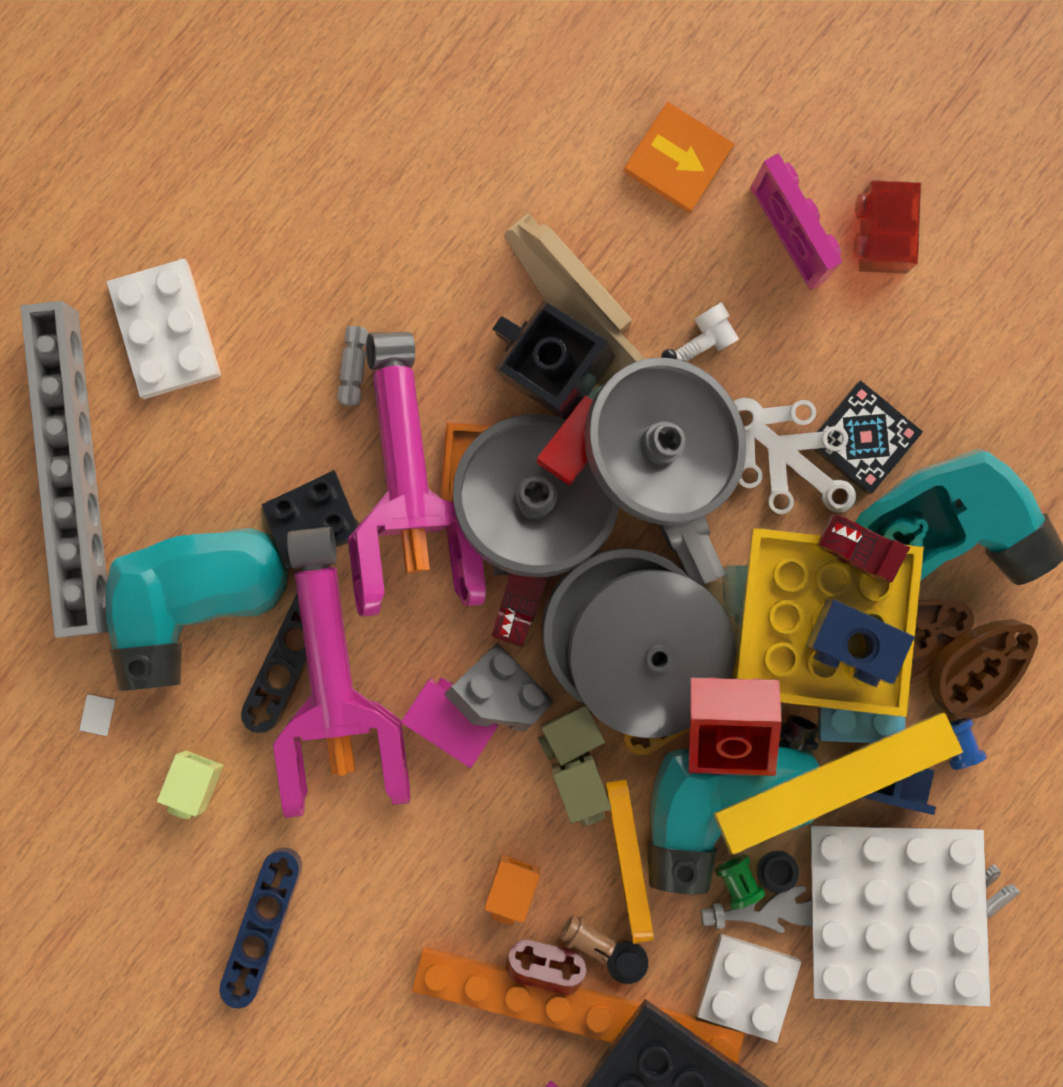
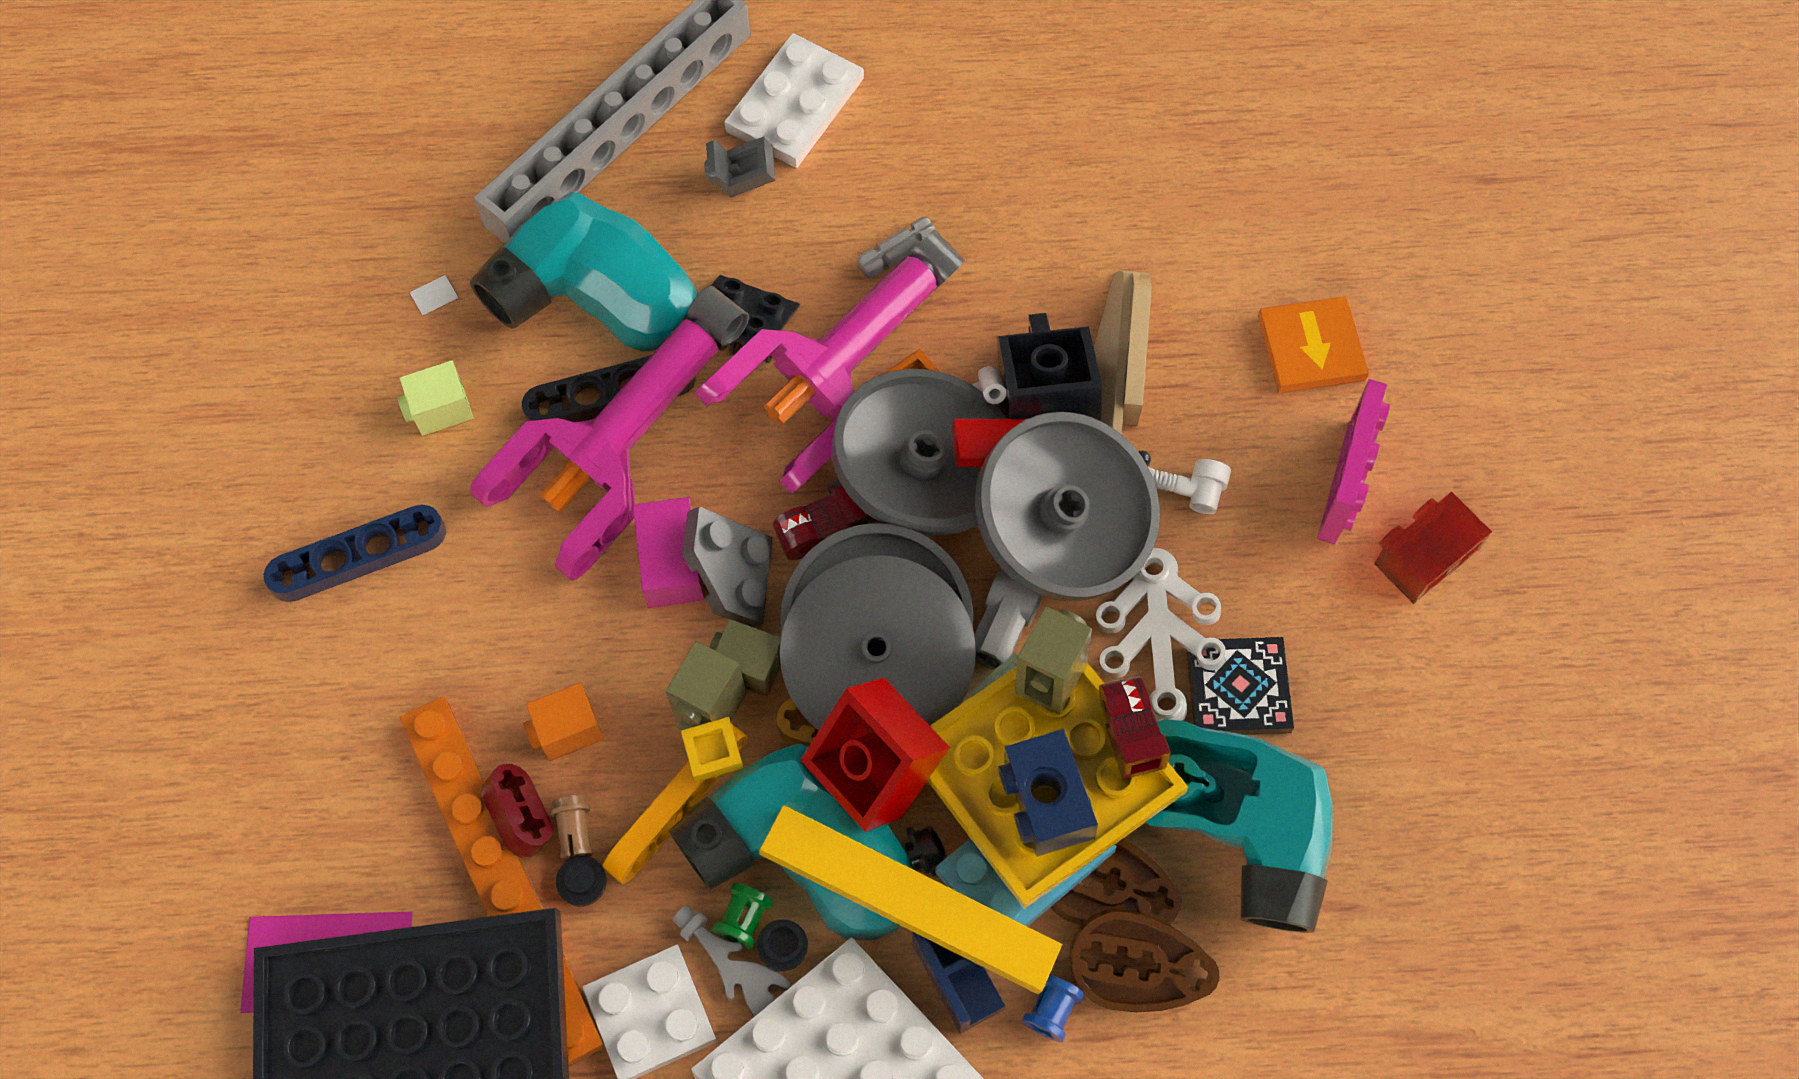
camera: 50 degrees right, 20 degrees down
(189, 418) = (740, 167): none -> dark grey bracket
(523, 403) = (991, 384): none -> white arm
(627, 819) = (712, 749): none -> yellow plate
(783, 561) = (1053, 659): none -> olive brick

